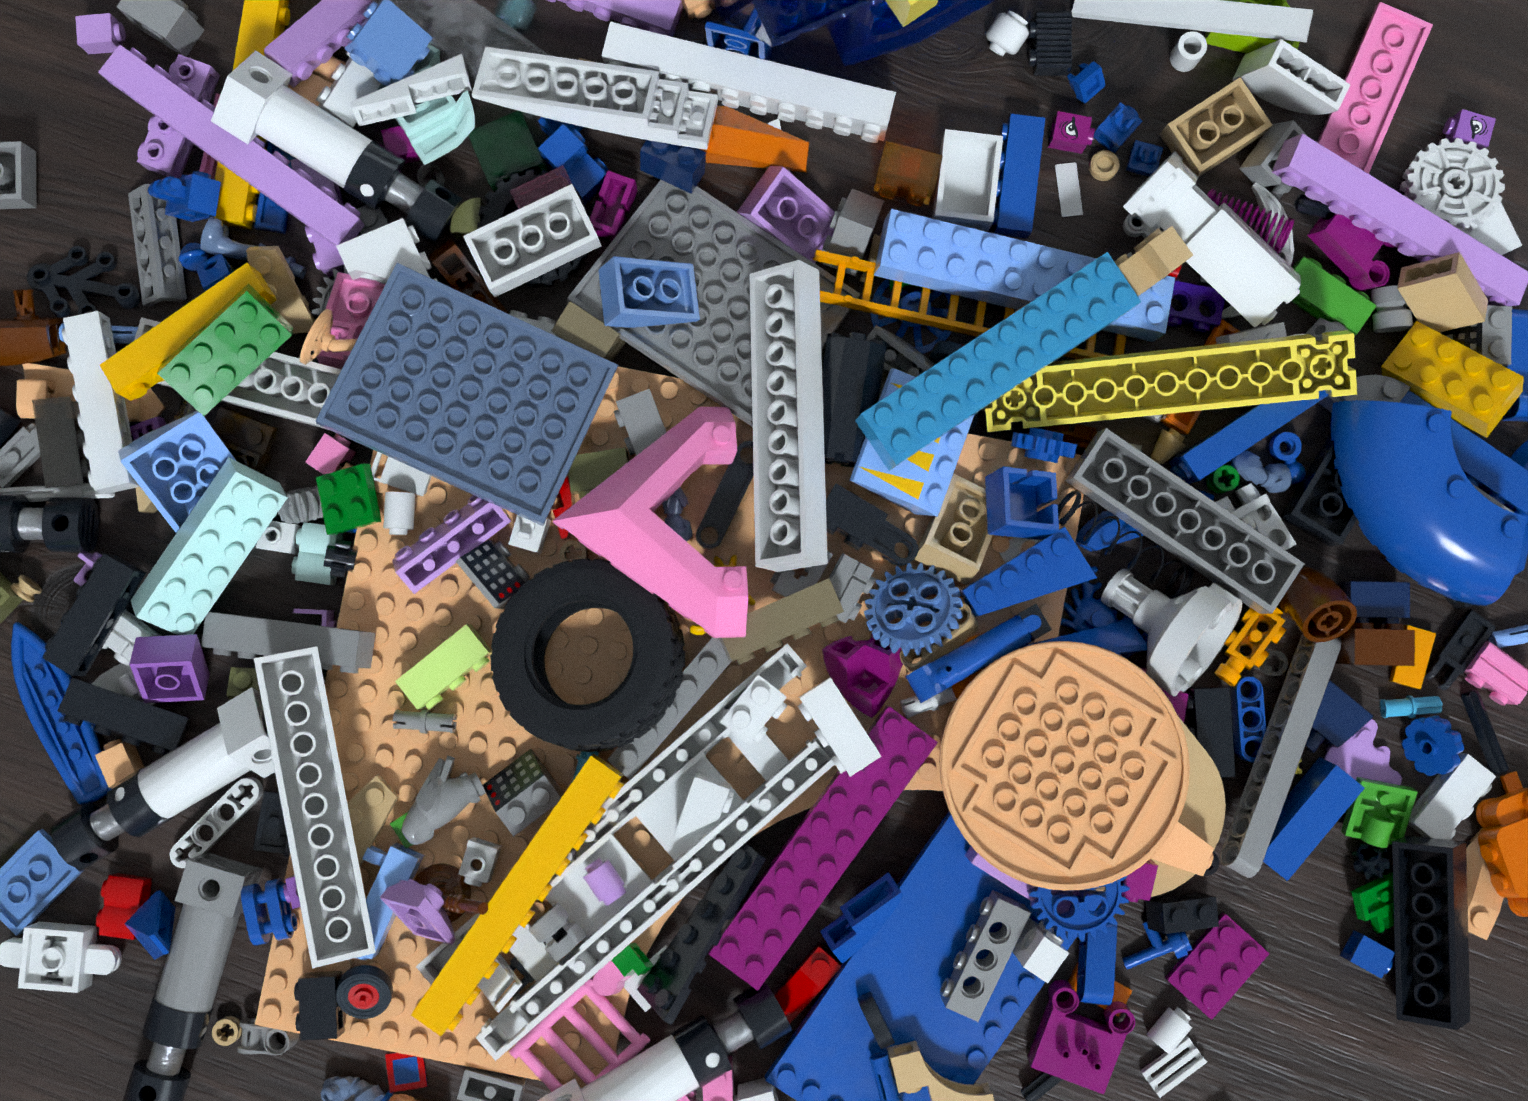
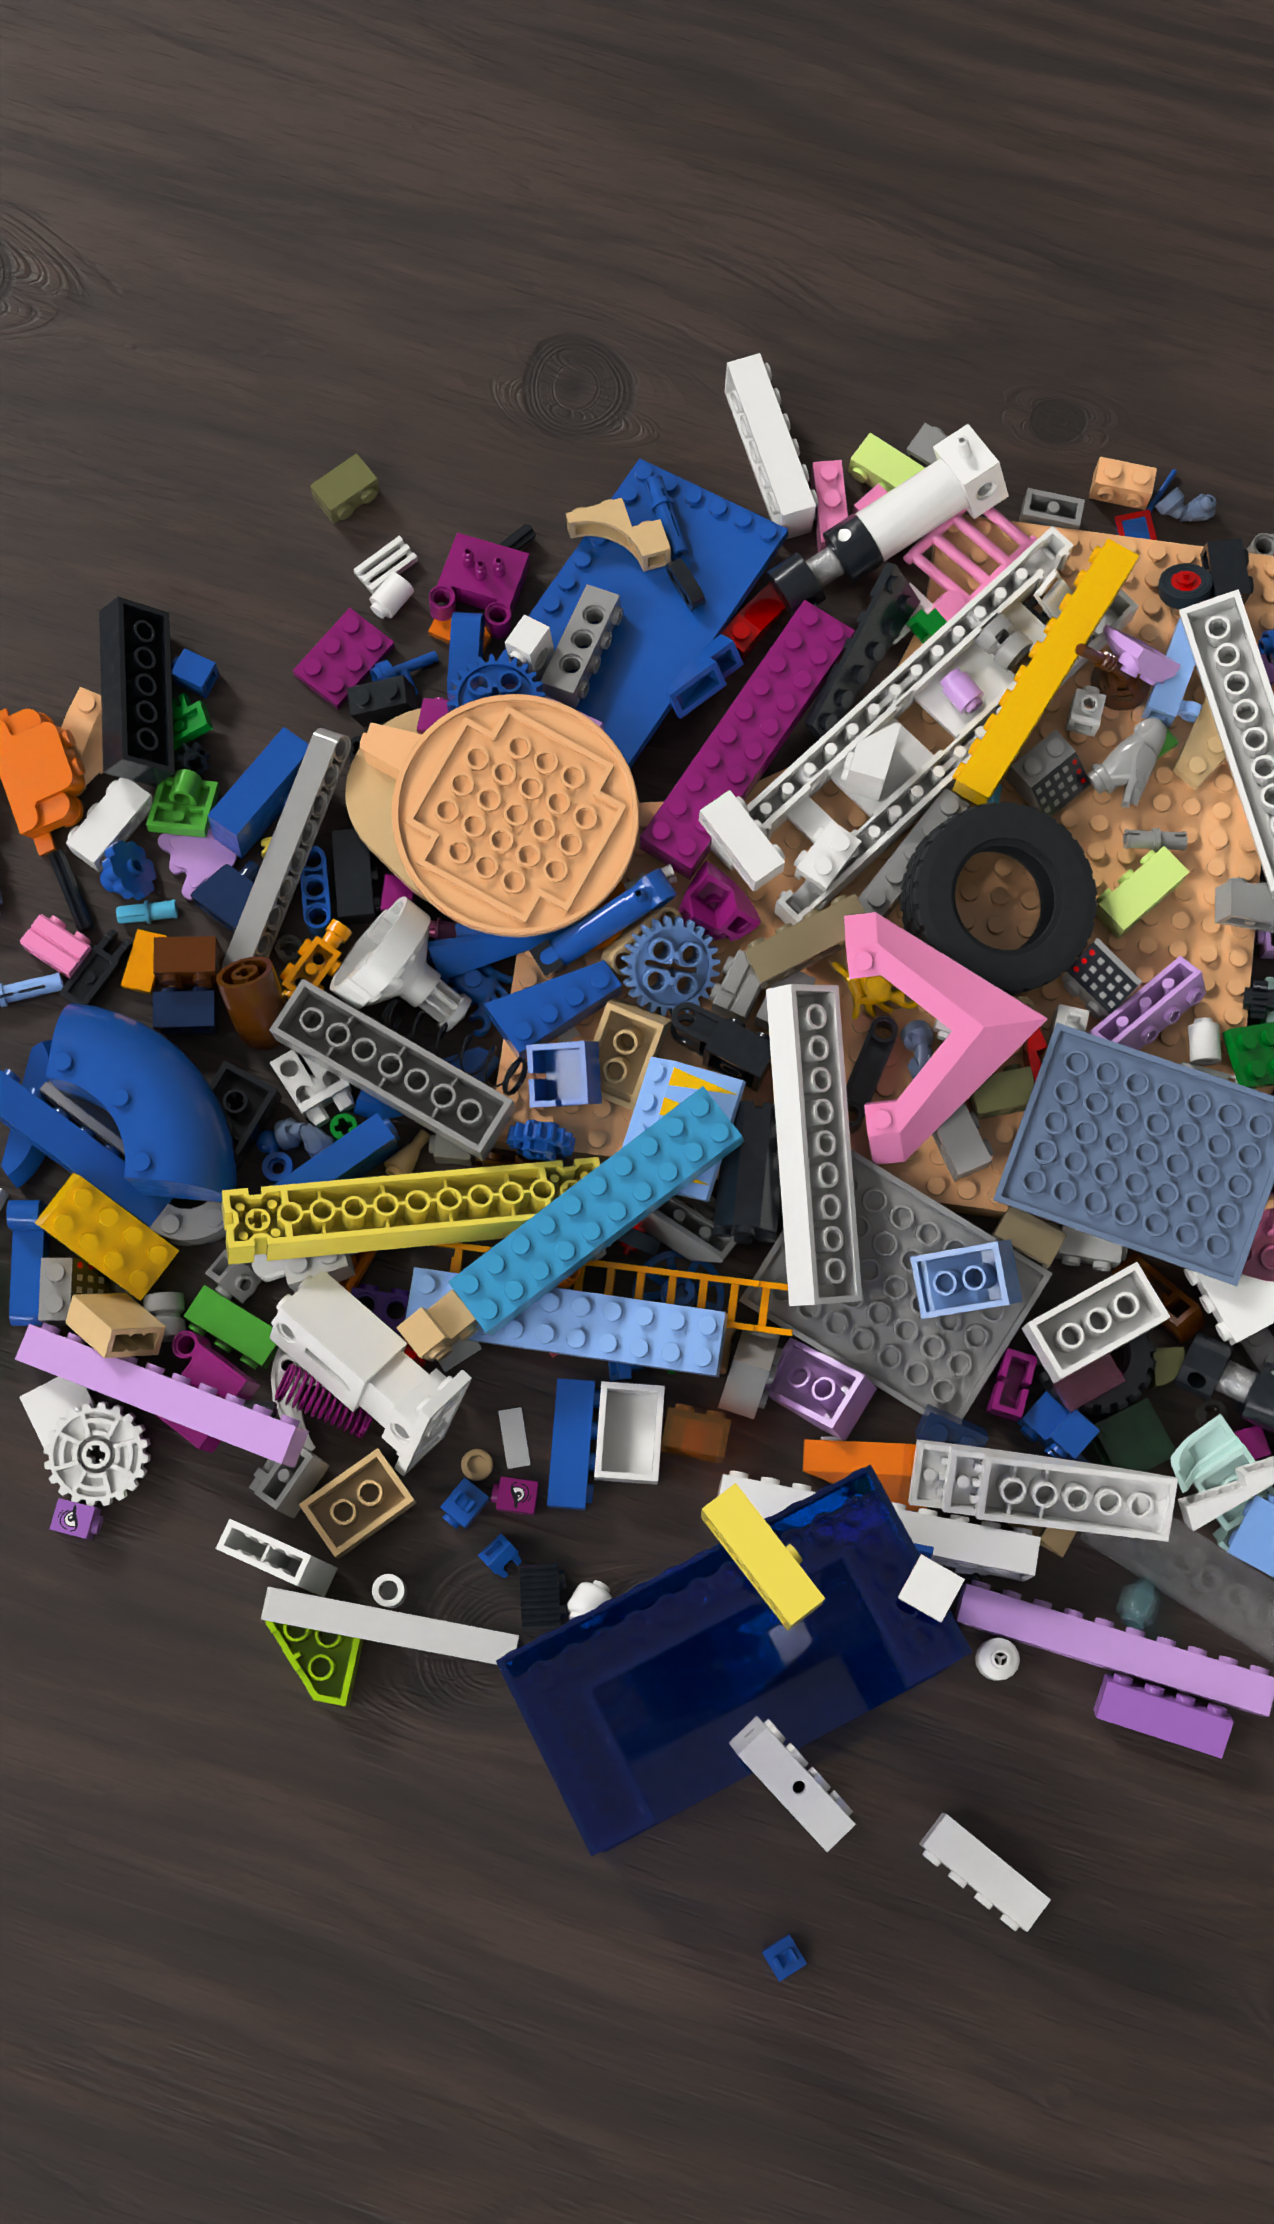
camera: 175 degrees right, 10 degrees down
(1144, 158) = (433, 1474): blue tile -> none
(1376, 85) = (182, 1561): bright pink plate -> none

